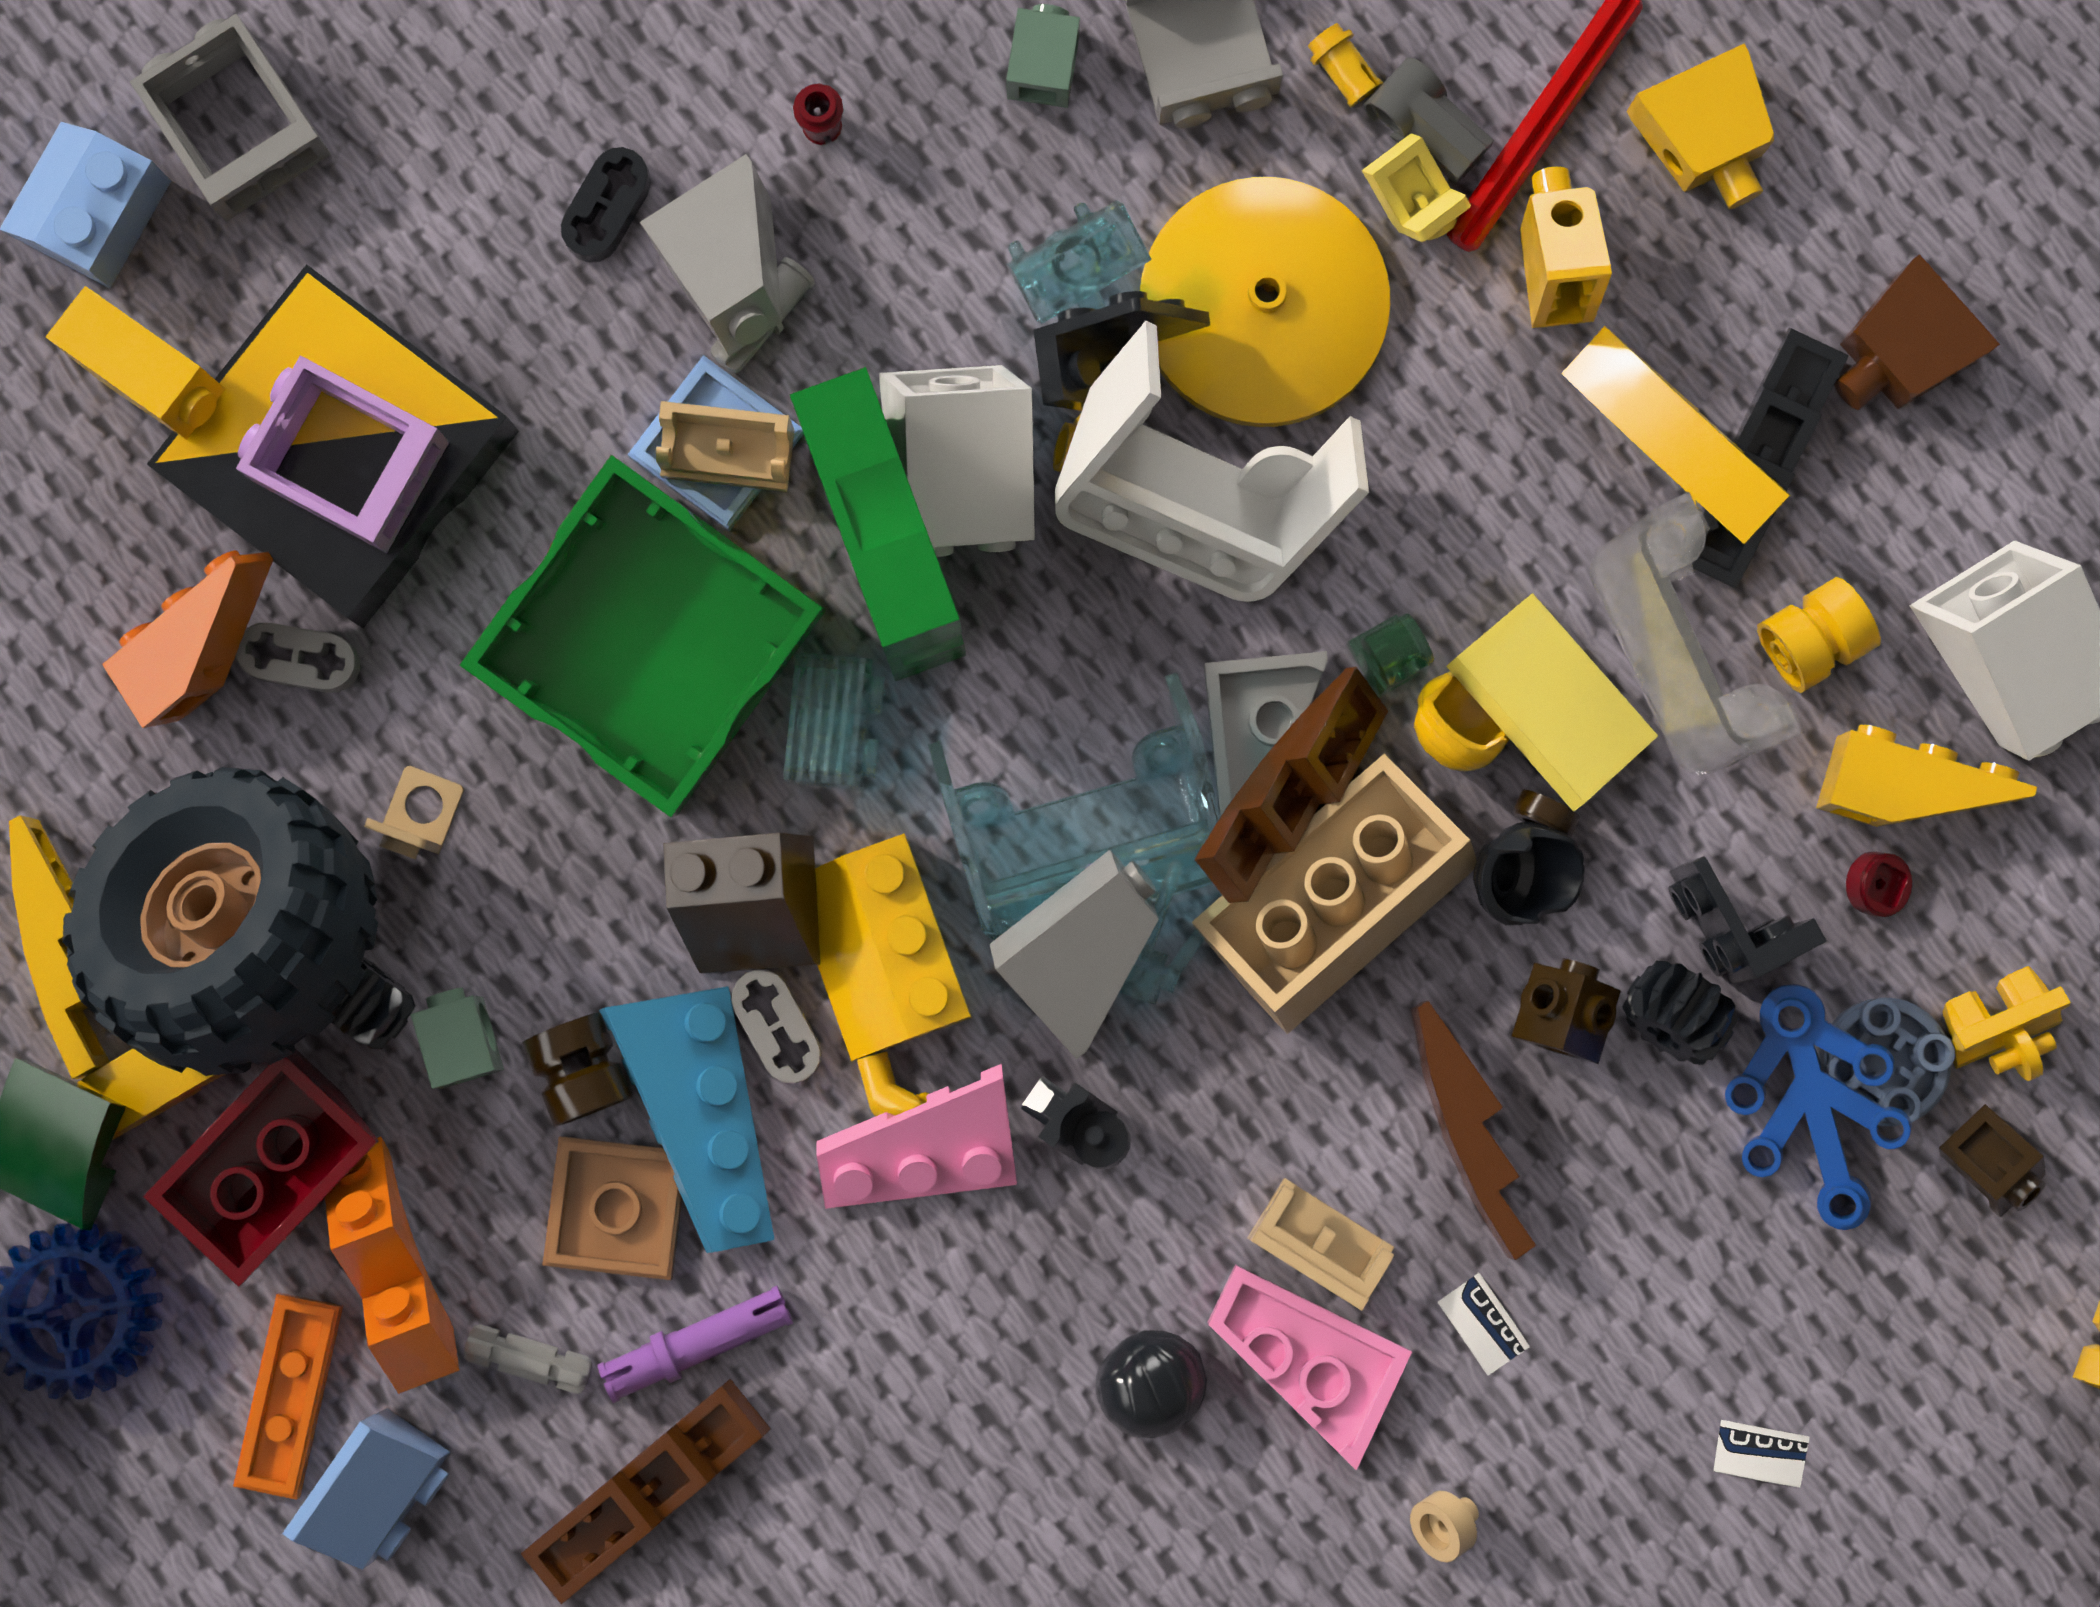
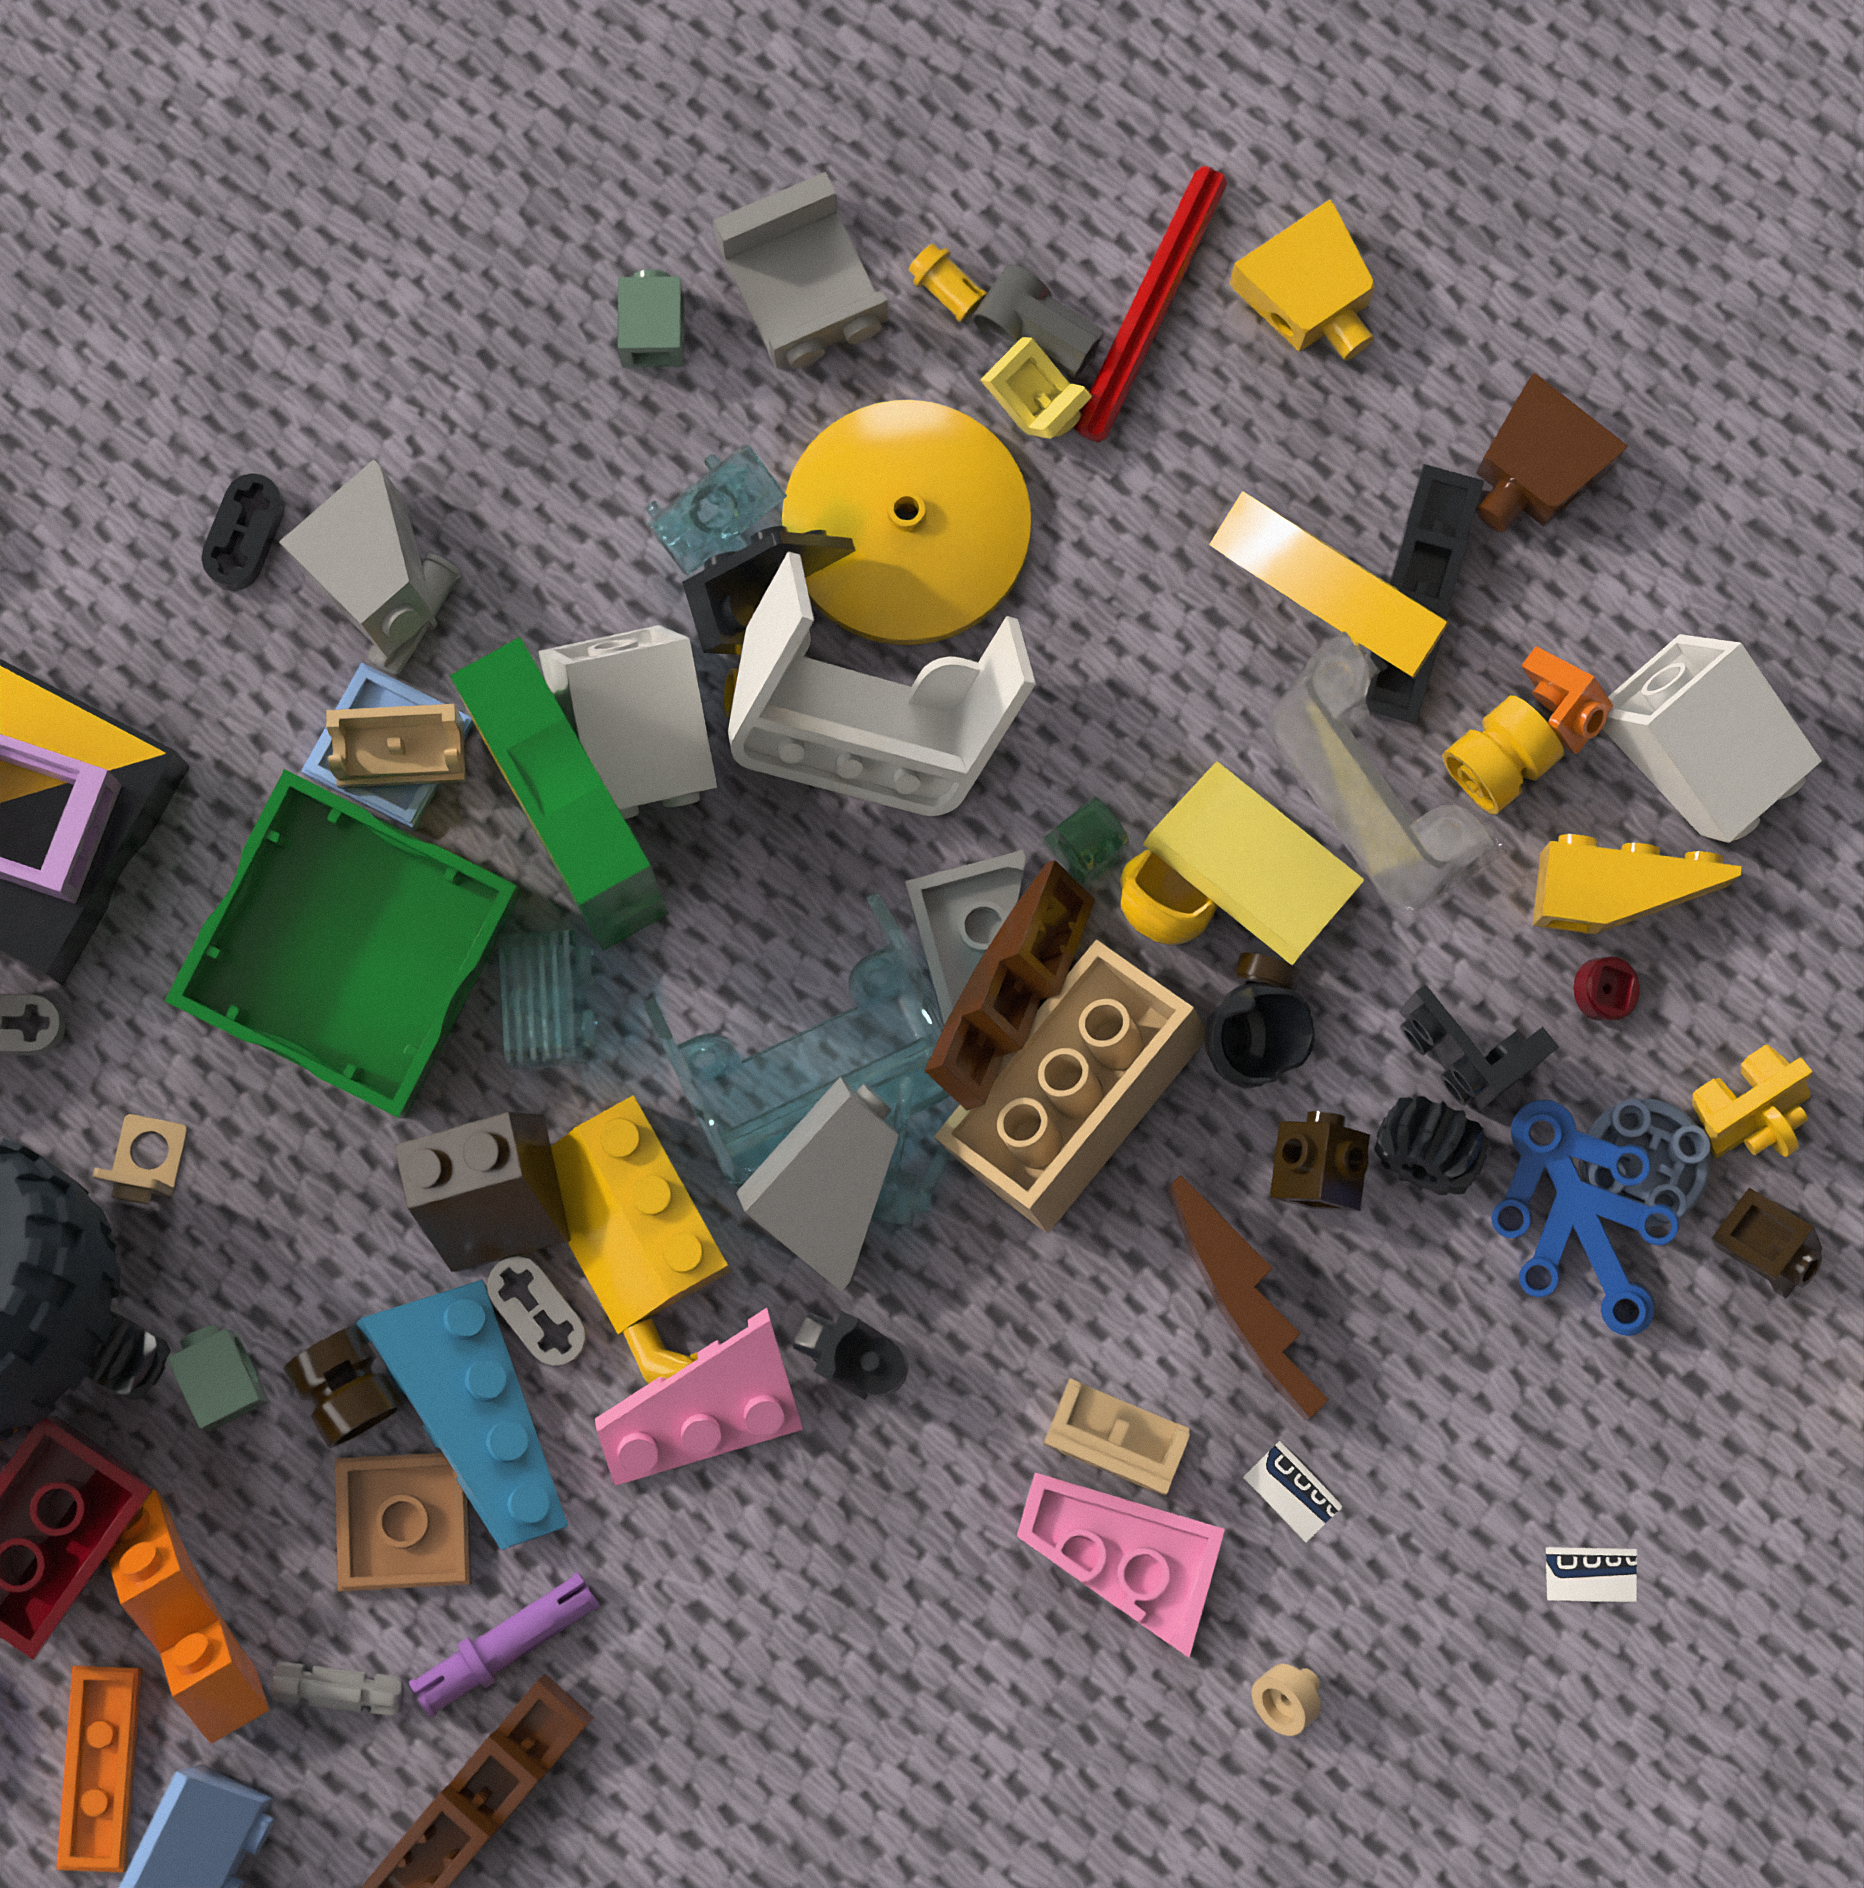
camera: 10 degrees left, 5 degrees down
(829, 103) = (451, 404): dark red pin -> none
(1151, 1384) = (970, 1606): black hair -> none
(1563, 251) = (1189, 426): yellow torso -> none
(1899, 587) = (1572, 695): none -> orange bracket

